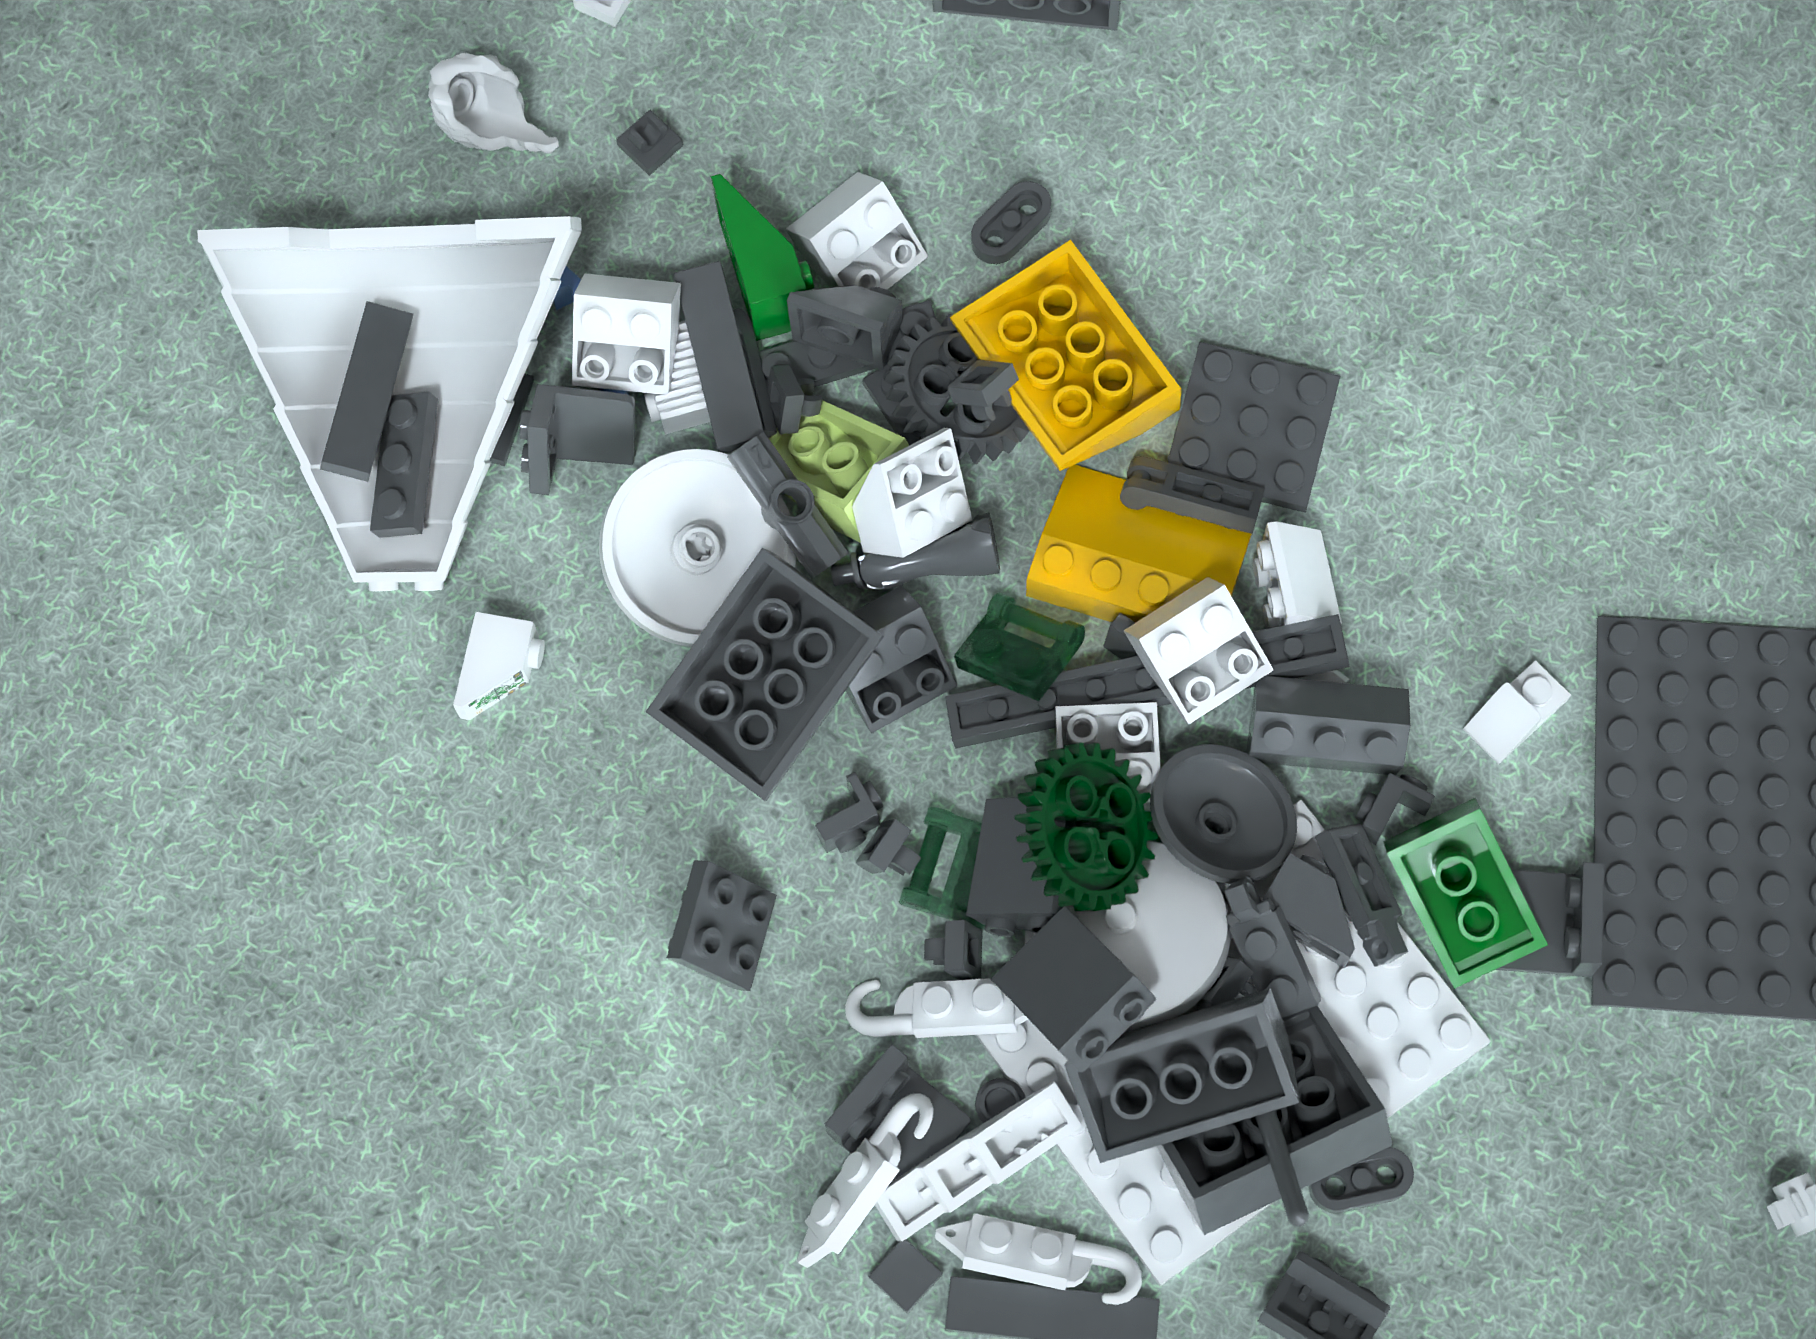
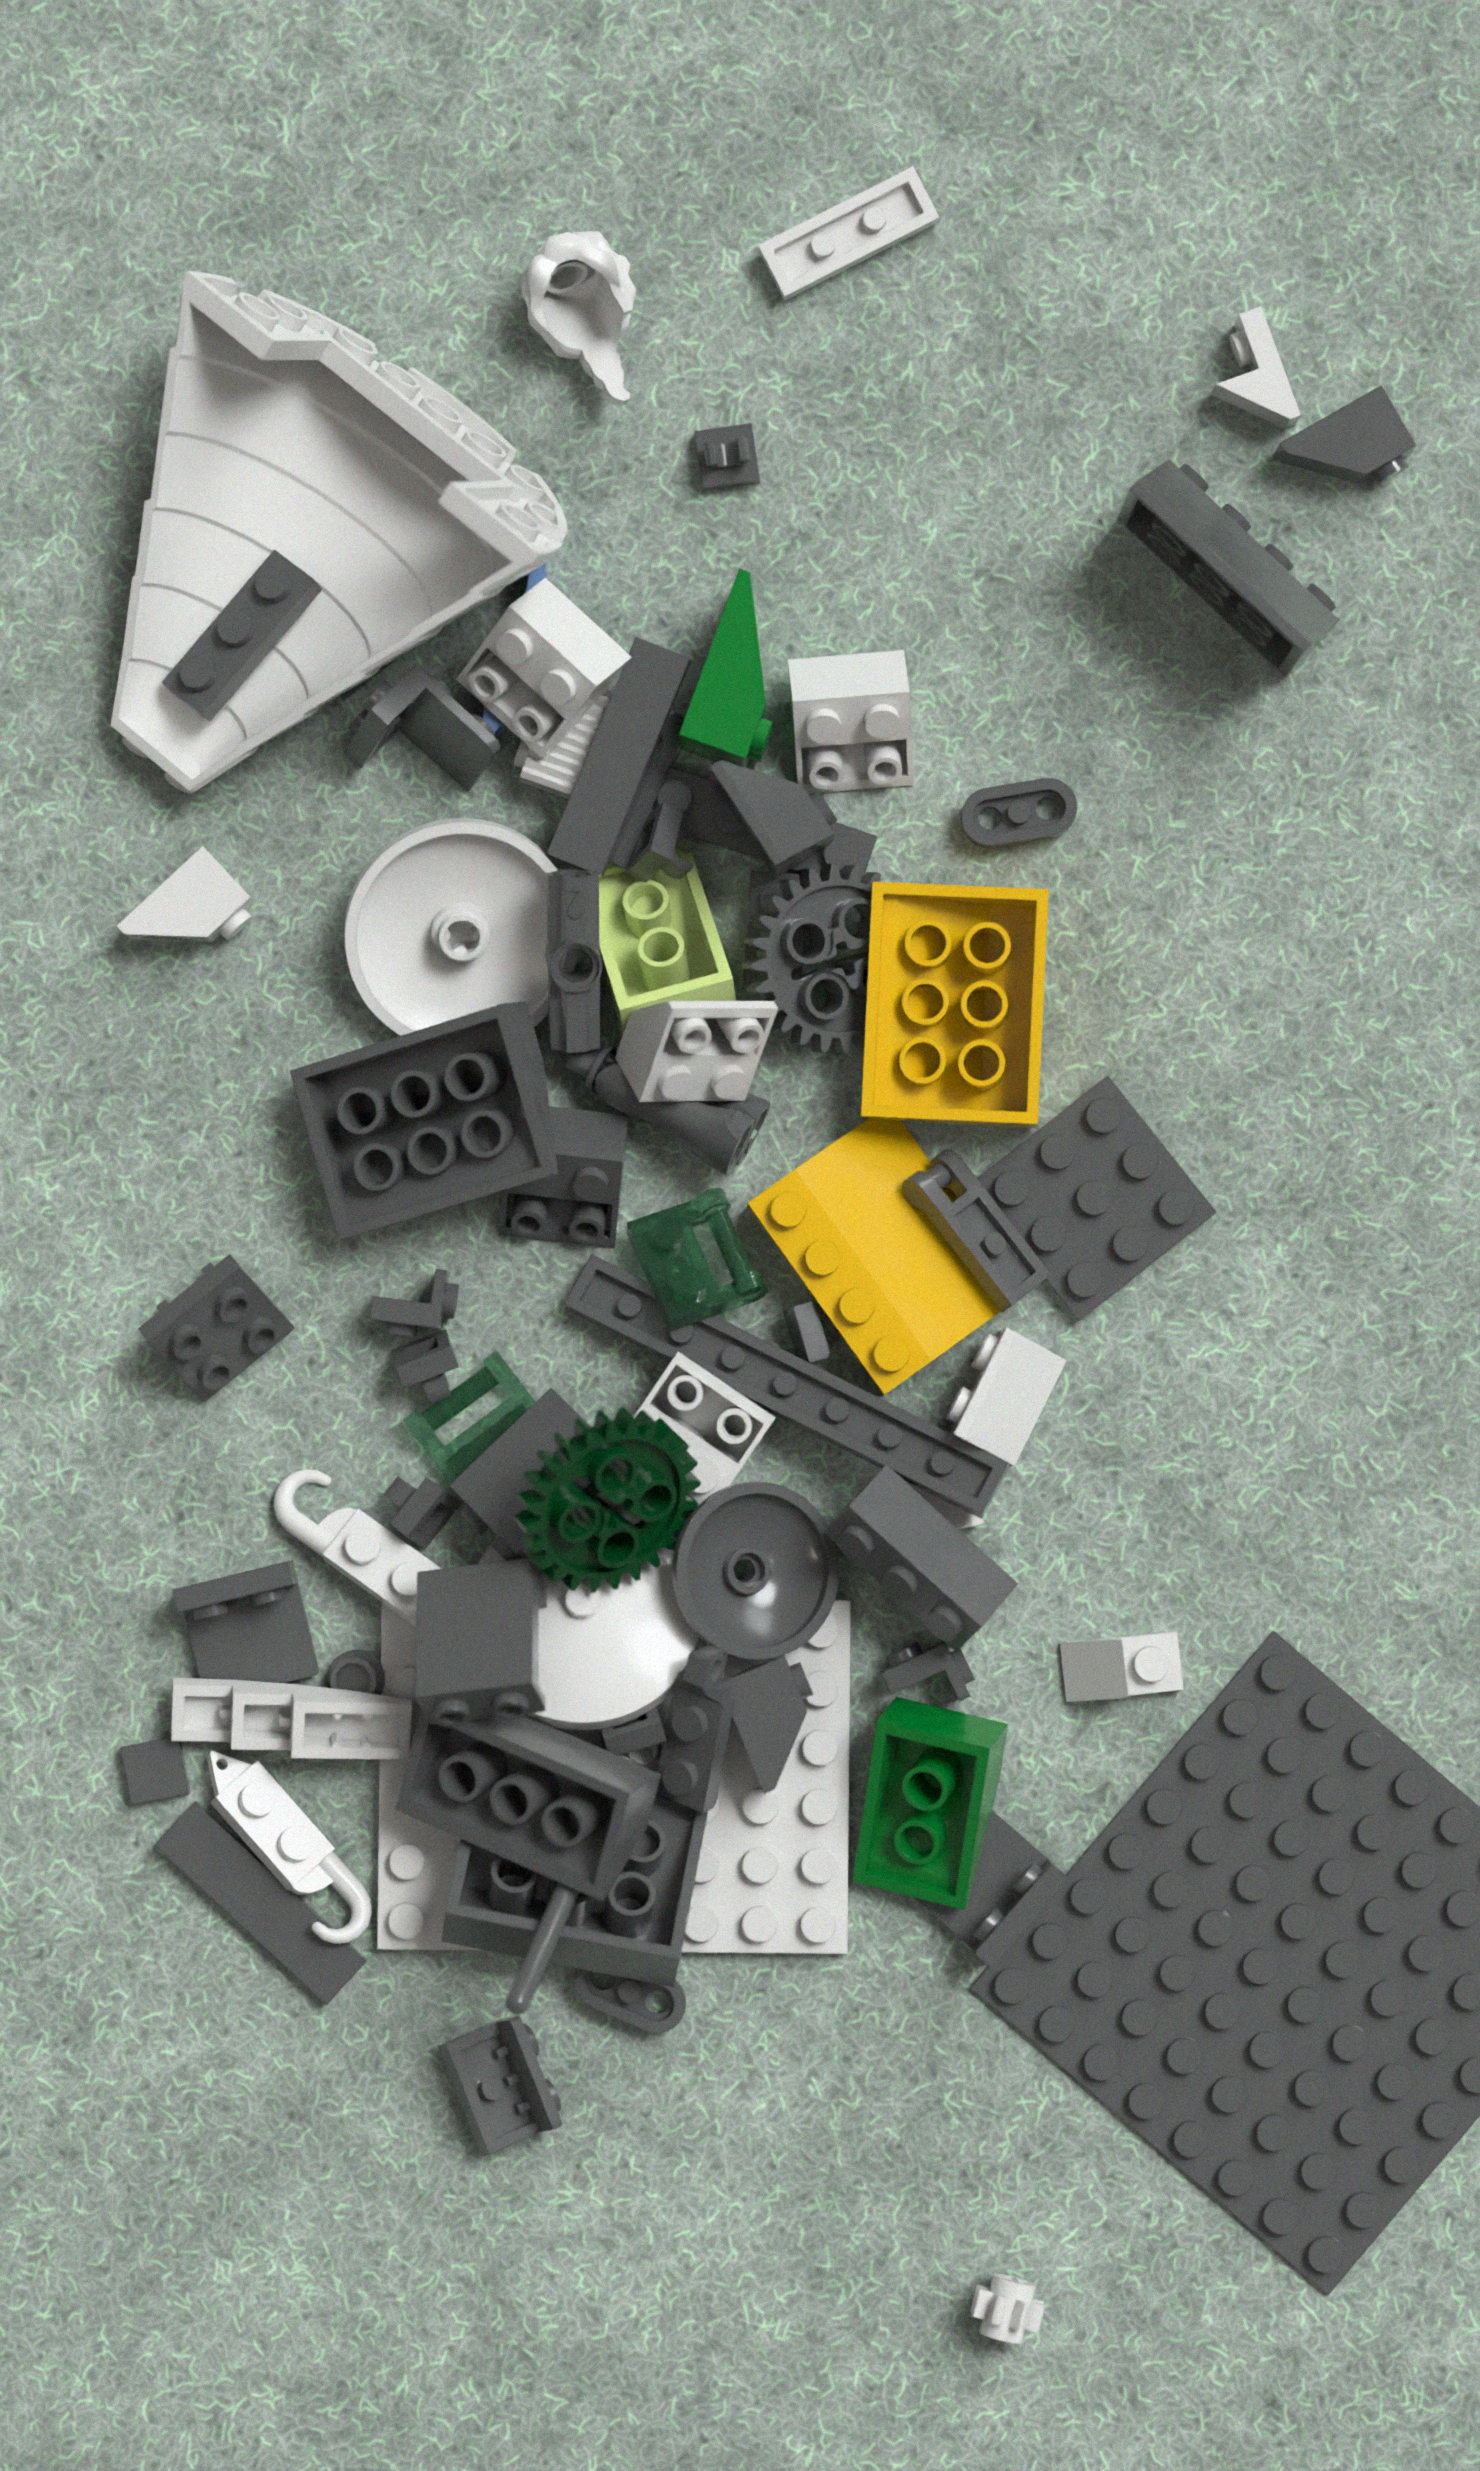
camera: 30 degrees right, 15 degrees up
(366, 391) = (255, 536): dark grey tile -> none
(861, 1181) = (173, 1661): white plate -> none
(984, 385) = (846, 983): dark grey tile -> none
(1199, 649) = (847, 1401): white slope -> none
(1364, 891) = (832, 1736): dark grey hinge -> none

